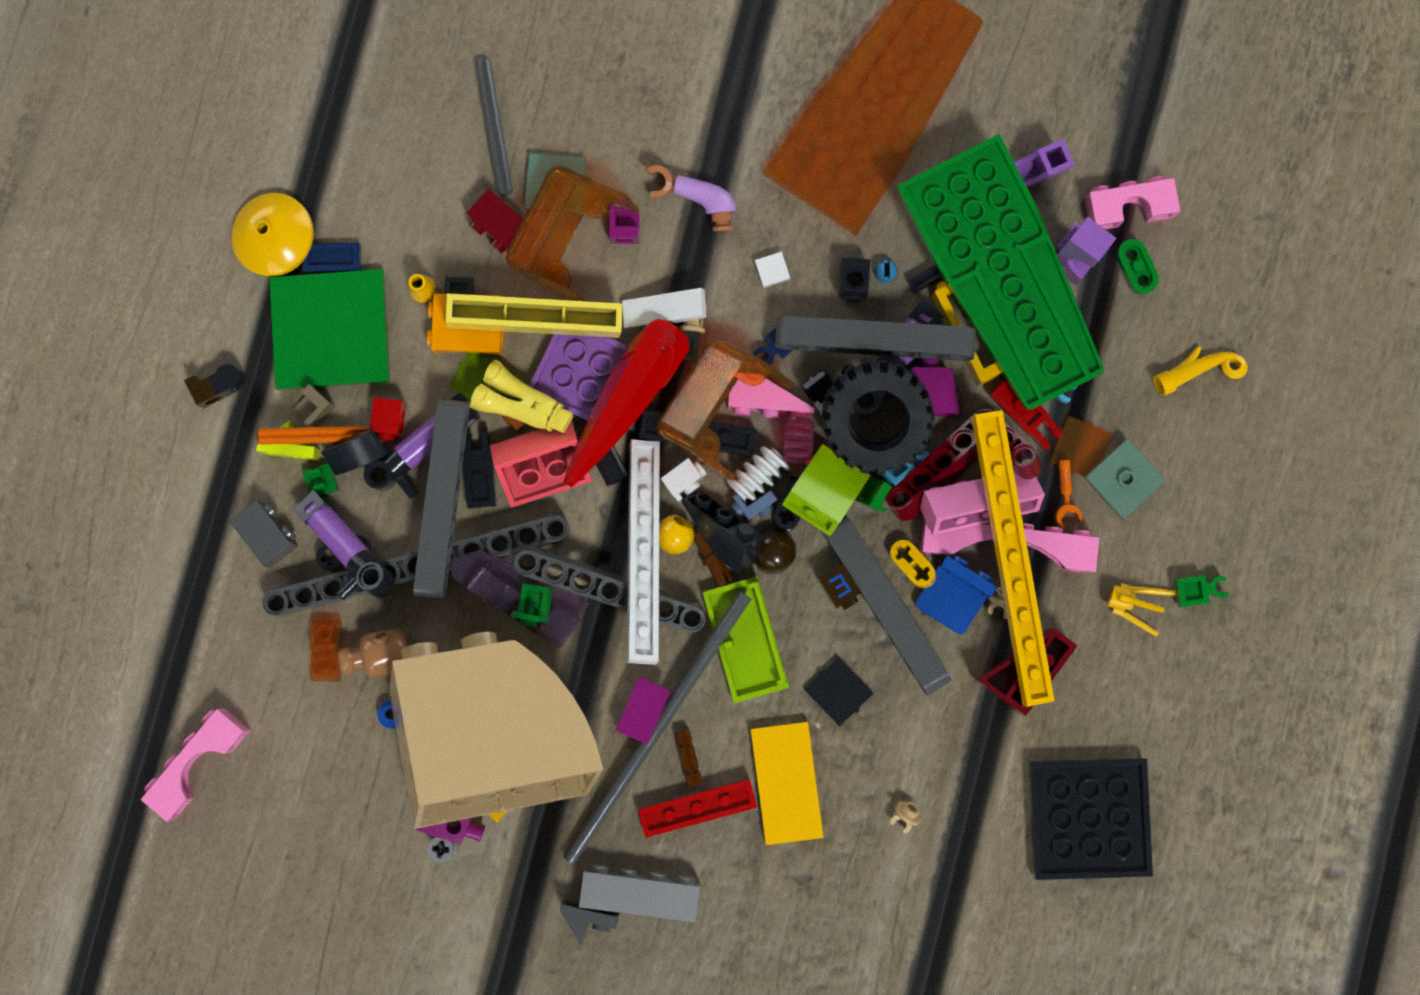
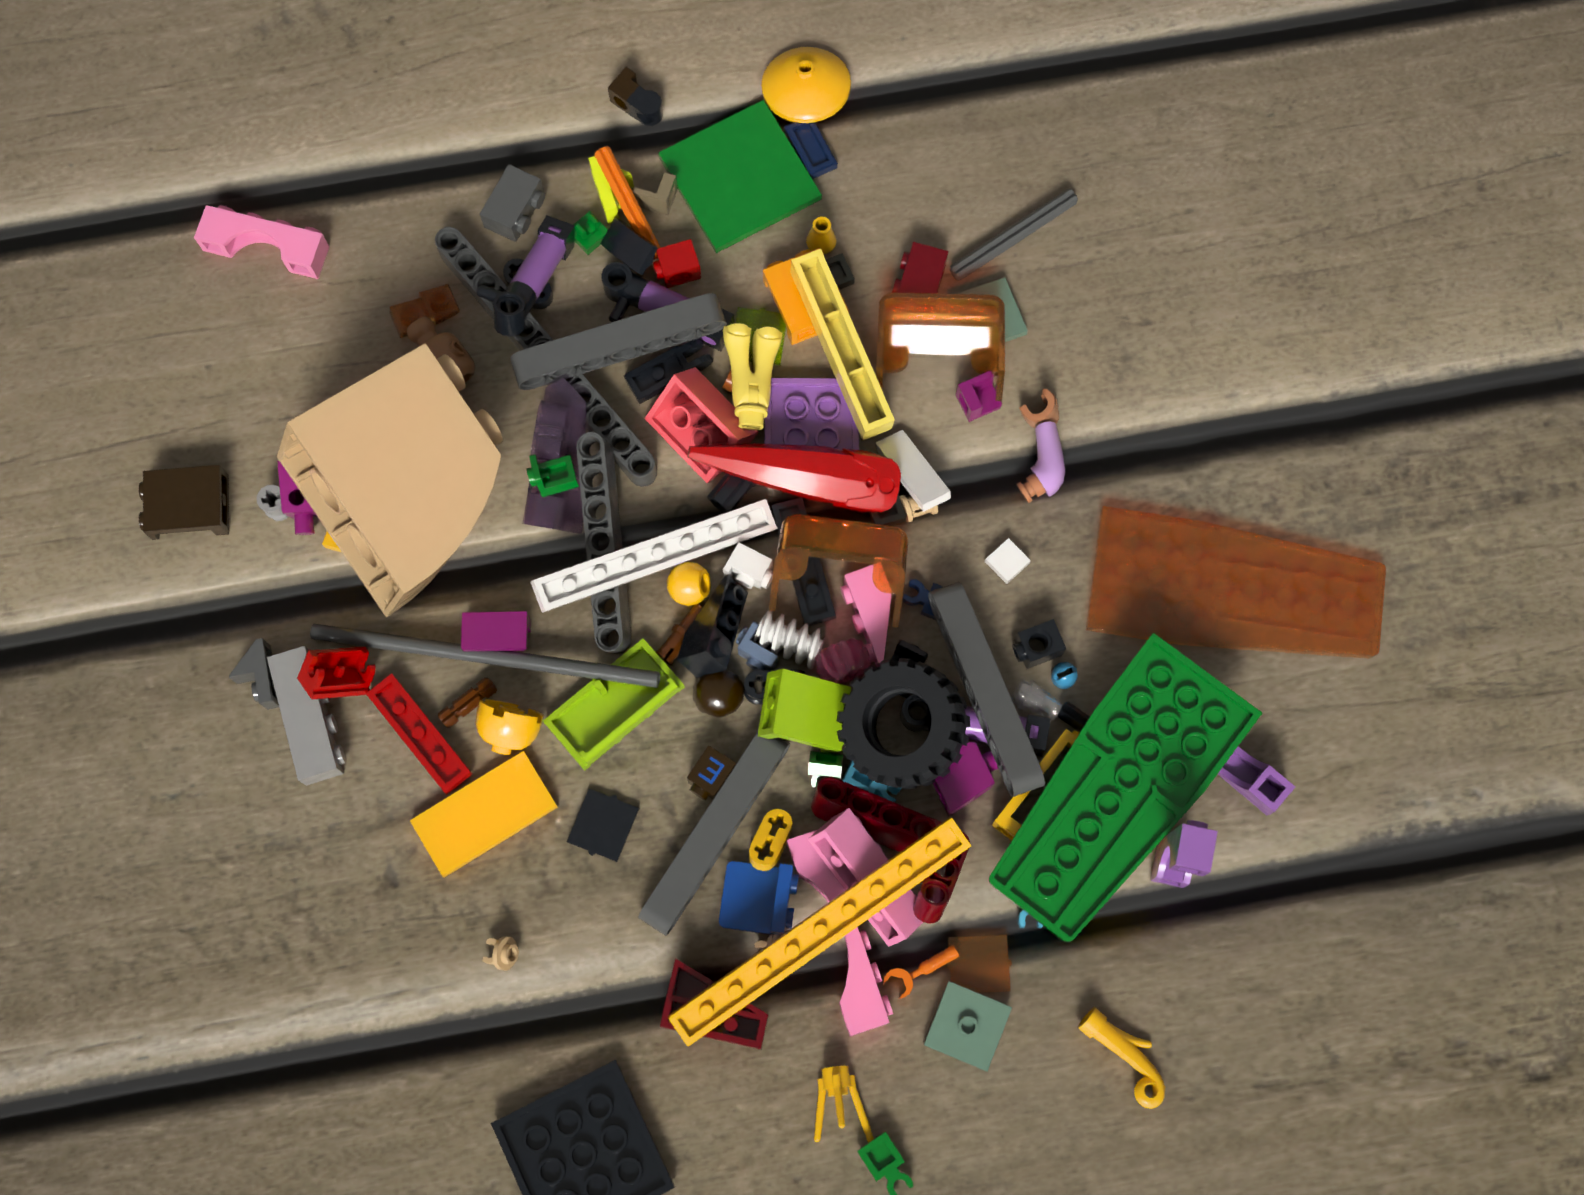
camera: 60 degrees right, 10 degrees down
(406, 924) = (184, 501): none -> dark brown panel
(621, 854) = (336, 672): none -> red hinge
(726, 733) = (506, 725): none -> yellow cylinder
(896, 303) = (1035, 699): none -> clear cone
(1026, 419) = (980, 890): red hinge -> none
(1138, 267) = (1202, 936): green plate -> none
(1156, 198) = (1287, 918): bright pink arch -> none

